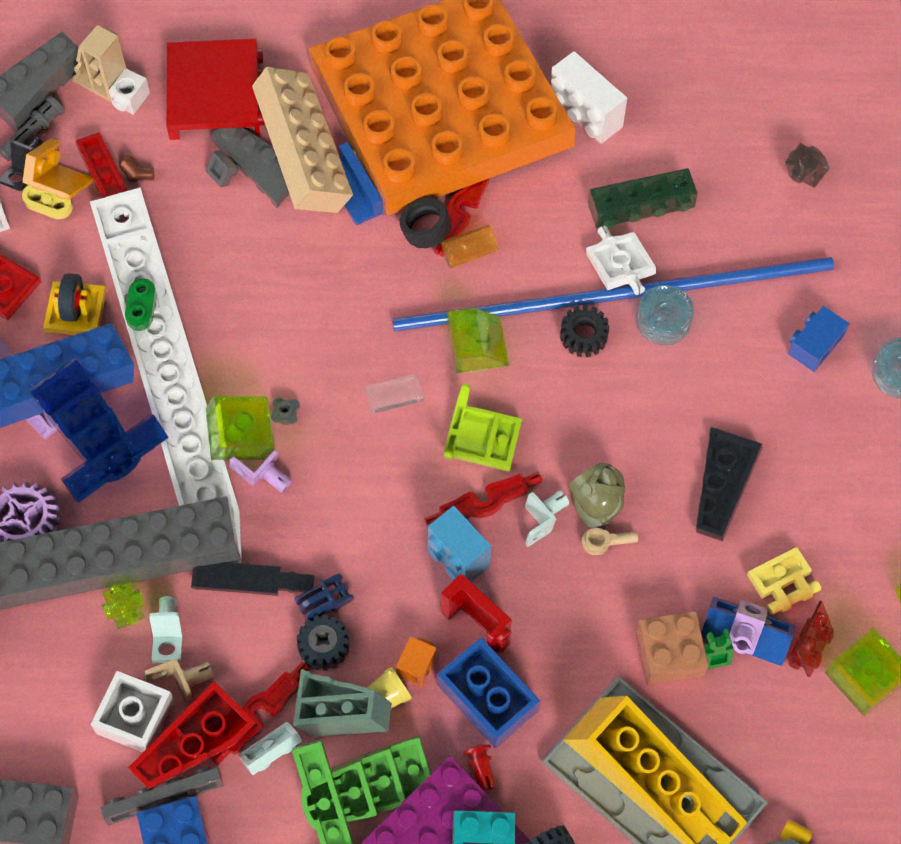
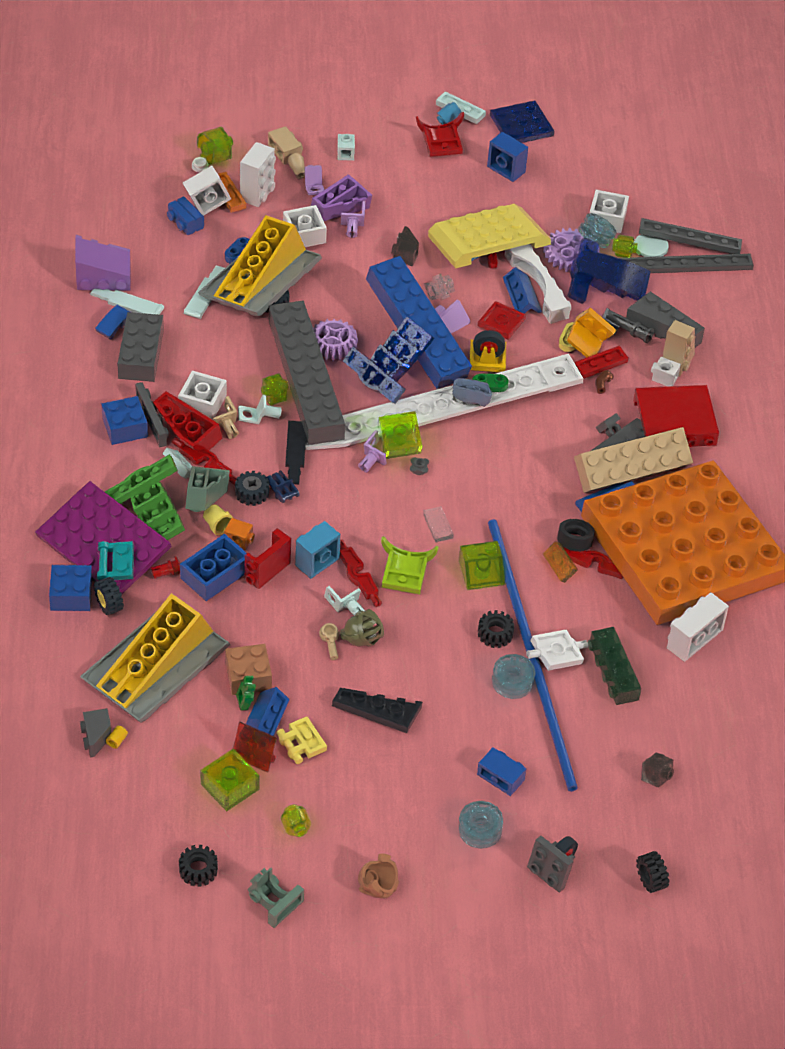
camera: 85 degrees right, 15 degrees down
(164, 325) = (472, 391): none -> sand blue piece
(747, 627) = (262, 709): lavender bracket -> none

